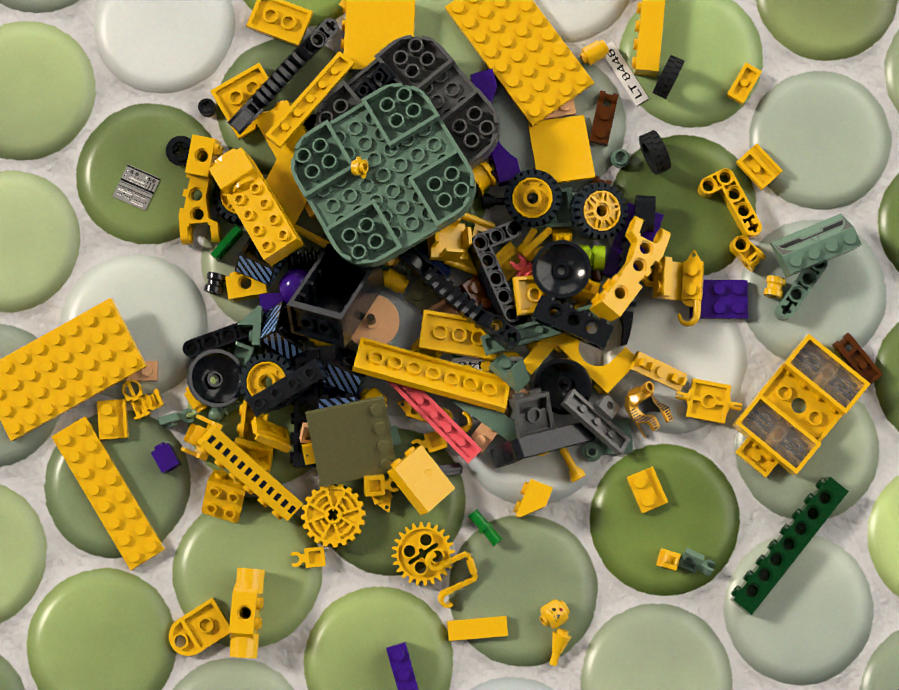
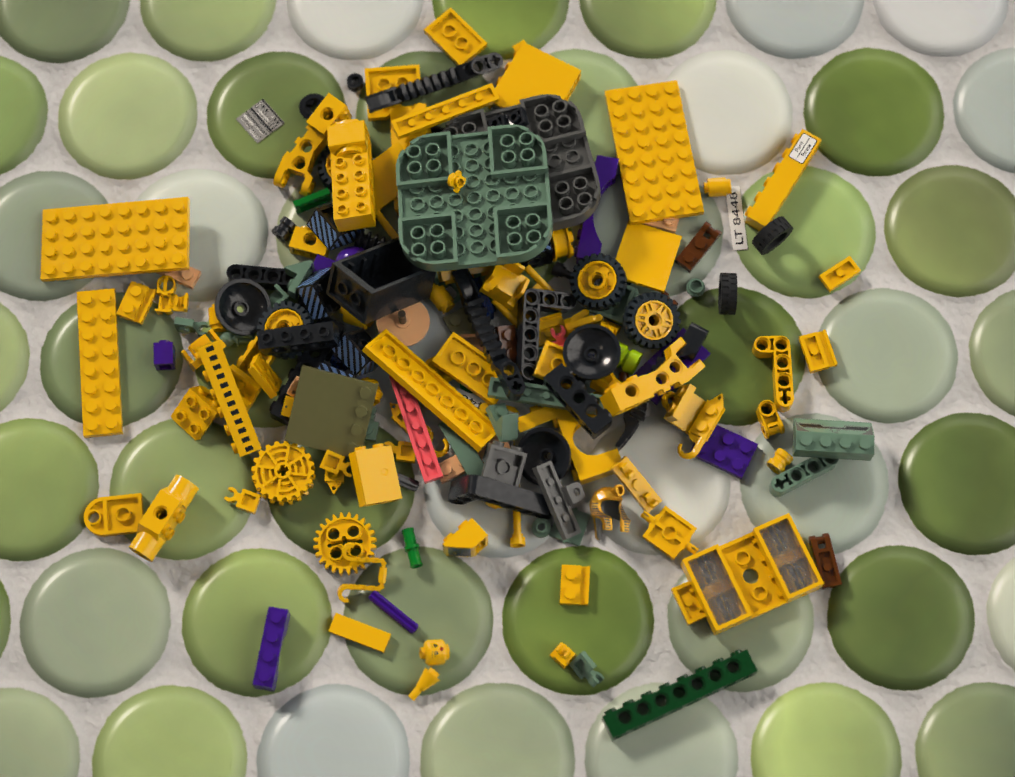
camera: 25 degrees right, 10 degrees down
(498, 594) = (393, 612): none -> dark purple axle

